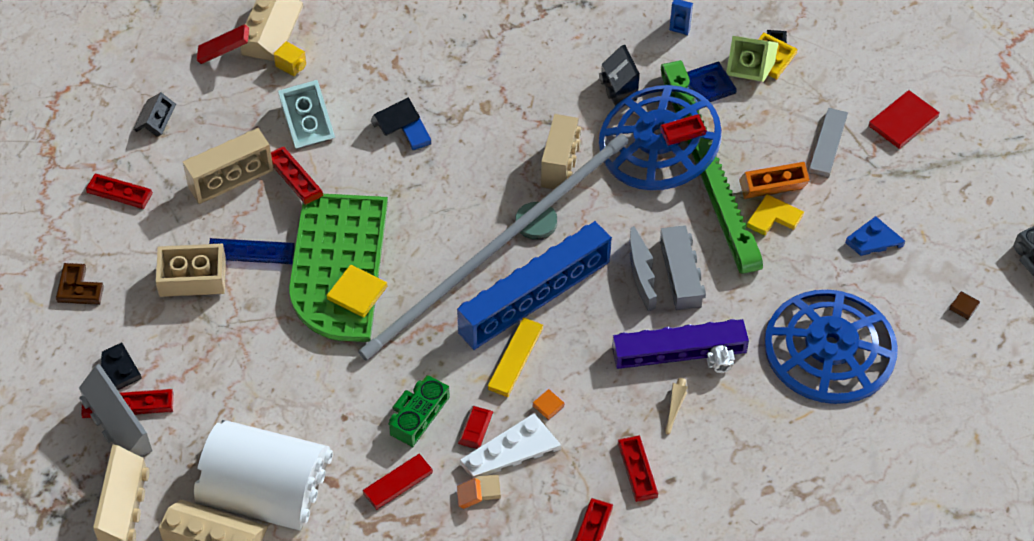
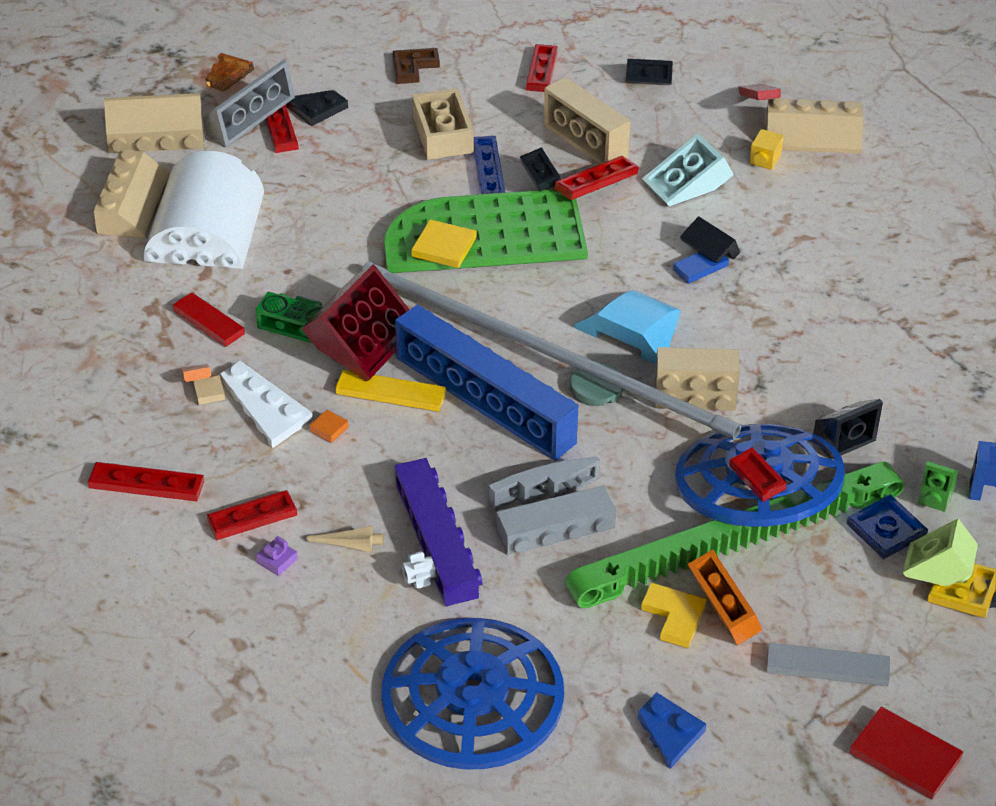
camera: 80 degrees right, 10 degrees down
(40, 436) = (228, 72): none -> clear orange wing
(279, 208) = (540, 169): none -> black panel
(448, 360) = (359, 323): none -> dark red slope
(472, 183) = (635, 321): none -> medium azure wedge
(475, 427) = (290, 370): red tile -> none
(685, 42) = (937, 486): none -> bright green slope
(686, 455) = (277, 556): none -> medium lavender tile

